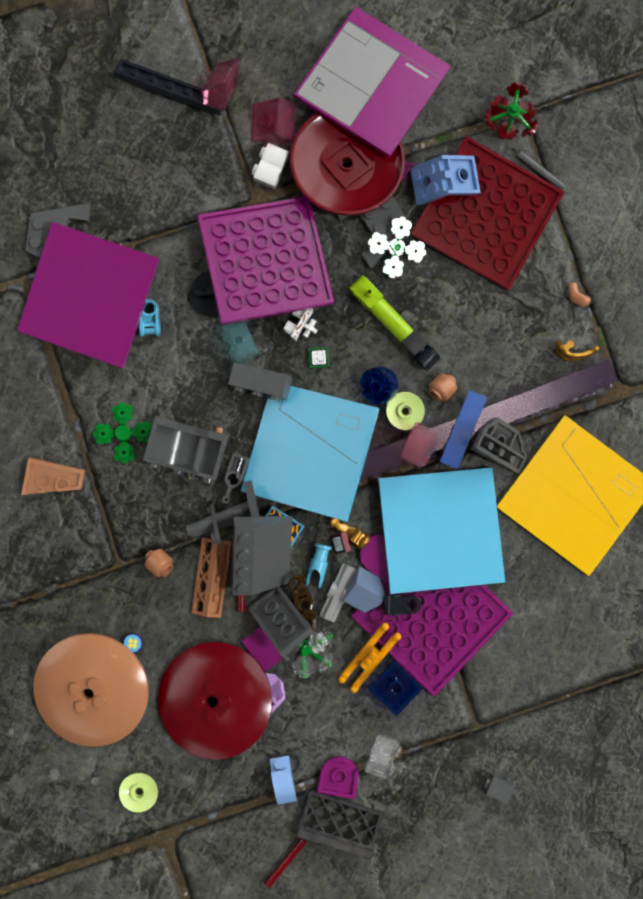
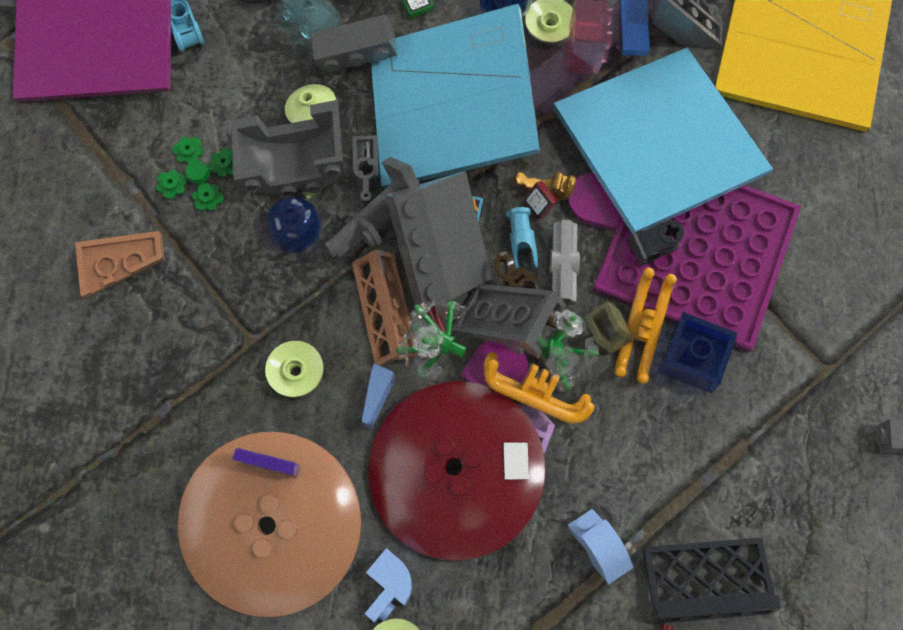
camera: 25 degrees left, 15 degrees down
(99, 661) = (266, 462): none -> dark purple tile
(129, 599) = (287, 357): none -> yellowish green dish
(133, 642) = (310, 431): tile -> none
(152, 750) = (395, 580): none -> light blue brick
(158, 563) = (305, 313): nougat head -> none
(173, 496) = (293, 224): none -> clear blue cylinder
(187, 629) = (379, 386): none -> medium blue slope
(218, 420) = (298, 104): none -> yellowish green dish
(225, 624) = (429, 339): none -> clear plant
(250, 714) = (516, 460): none -> white sticker
(282, 674) = (536, 392): none -> light orange piece
(338, 778) = (676, 513): magenta tile -> none
(346, 648) = (609, 327): none -> olive window
(364, 591) = (598, 246): sand blue slope -> none
(382, 756) = (723, 455): clear brick -> none

